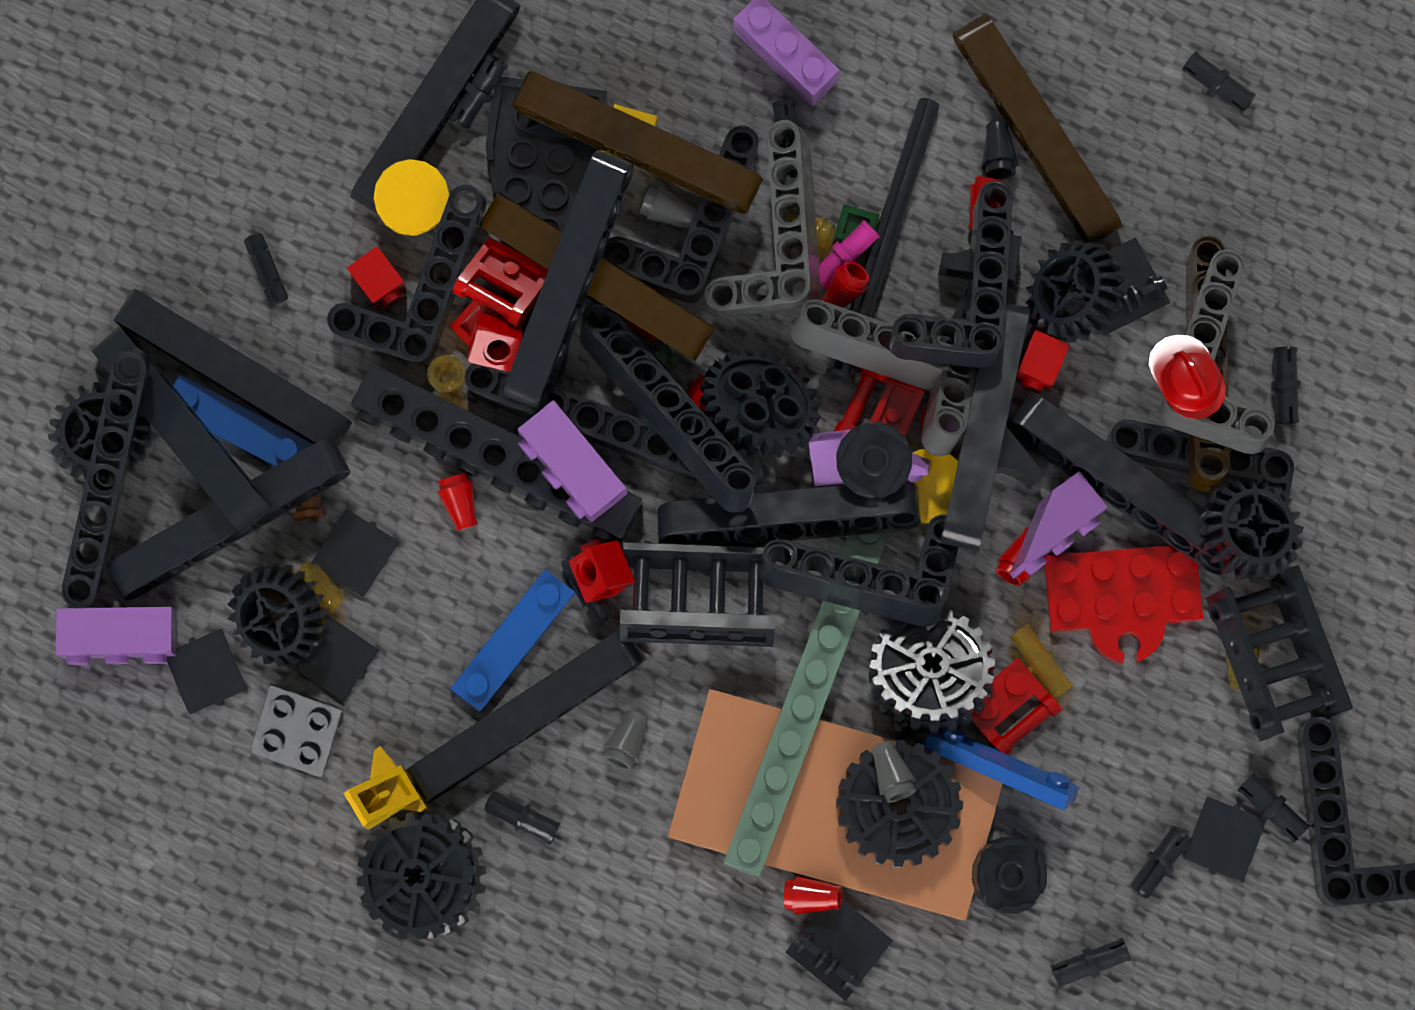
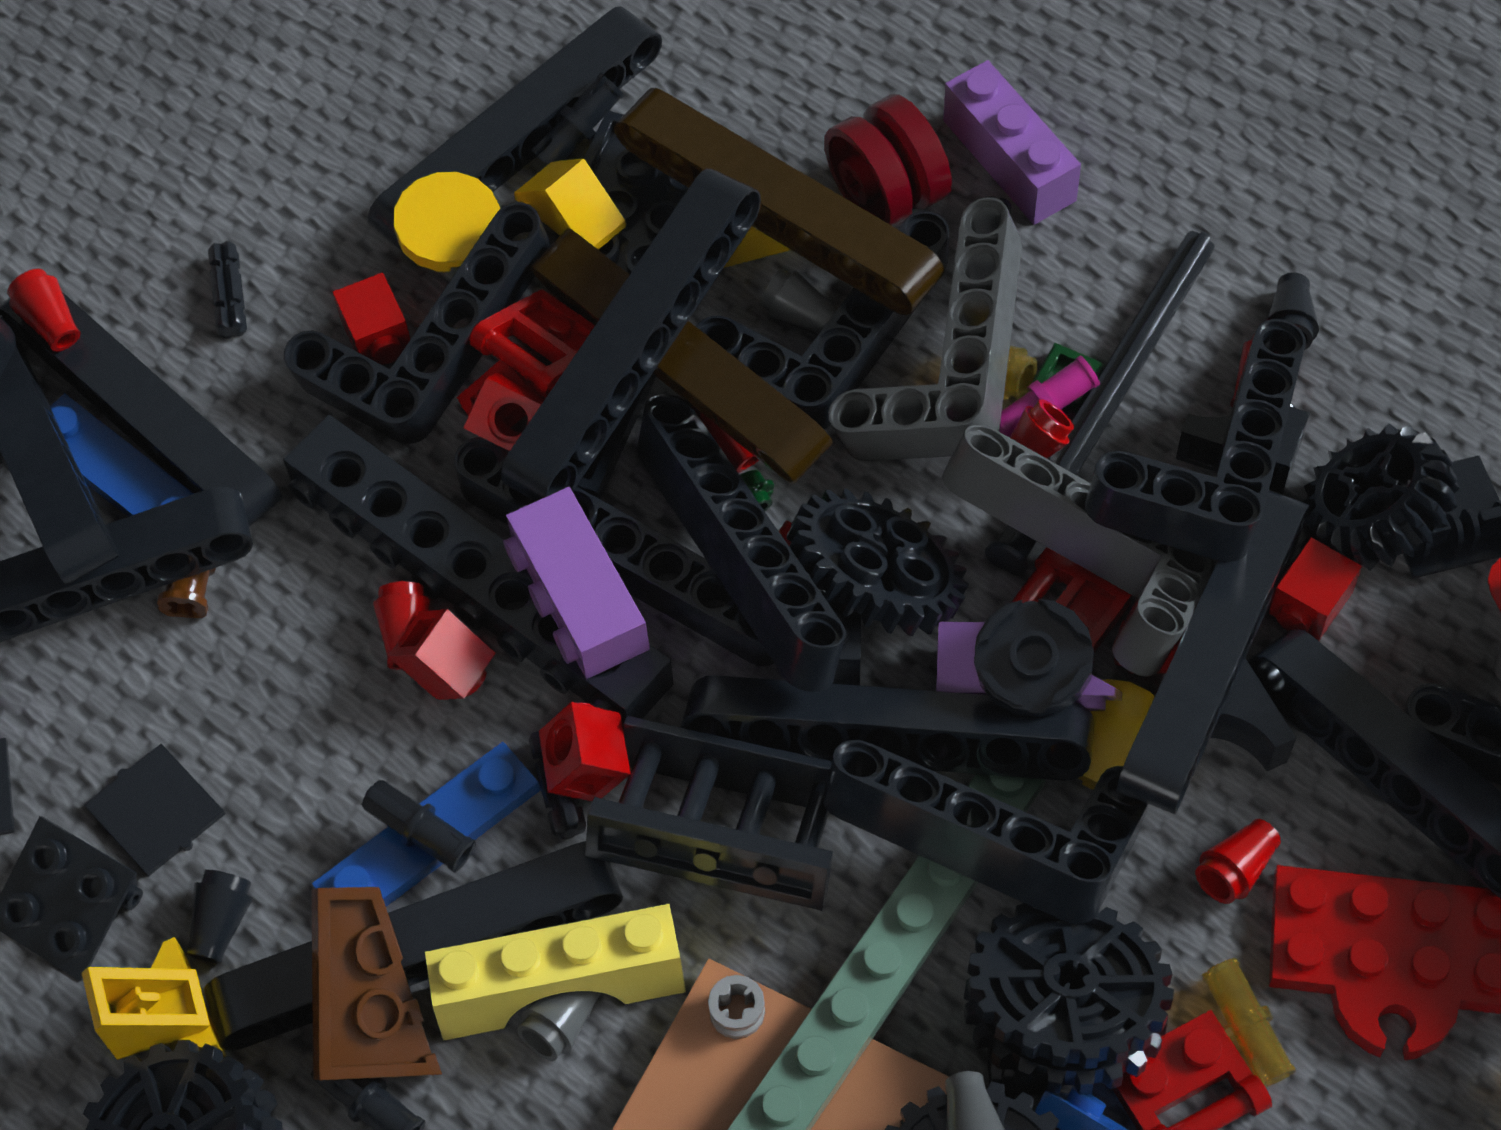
camera: 15 degrees right, 20 degrees down
(154, 323) = (42, 306): none -> red cone
(278, 591) = (86, 721): black gear -> none
(324, 585) = (158, 701): clear yellow cone -> none
(355, 553) = (232, 672): black piece -> none
(396, 720) = (216, 914): none -> black cone
(443, 366) = (431, 449): clear yellow cone -> none
(491, 164) = (573, 198): none -> yellow slope
(493, 521) = (442, 655): none -> red brick
(507, 762) = (360, 992): none -> reddish brown wing
(508, 640) = (418, 825): none -> black axle
(639, 705) = (489, 980): none -> light yellow arch
(705, 91) = (888, 160): none -> dark red wheel
(724, 712) = (722, 994): none -> light grey bush
(1037, 130) = (1352, 294): dark brown beam -> none
(1057, 518) = (1318, 805): medium lavender slope -> none

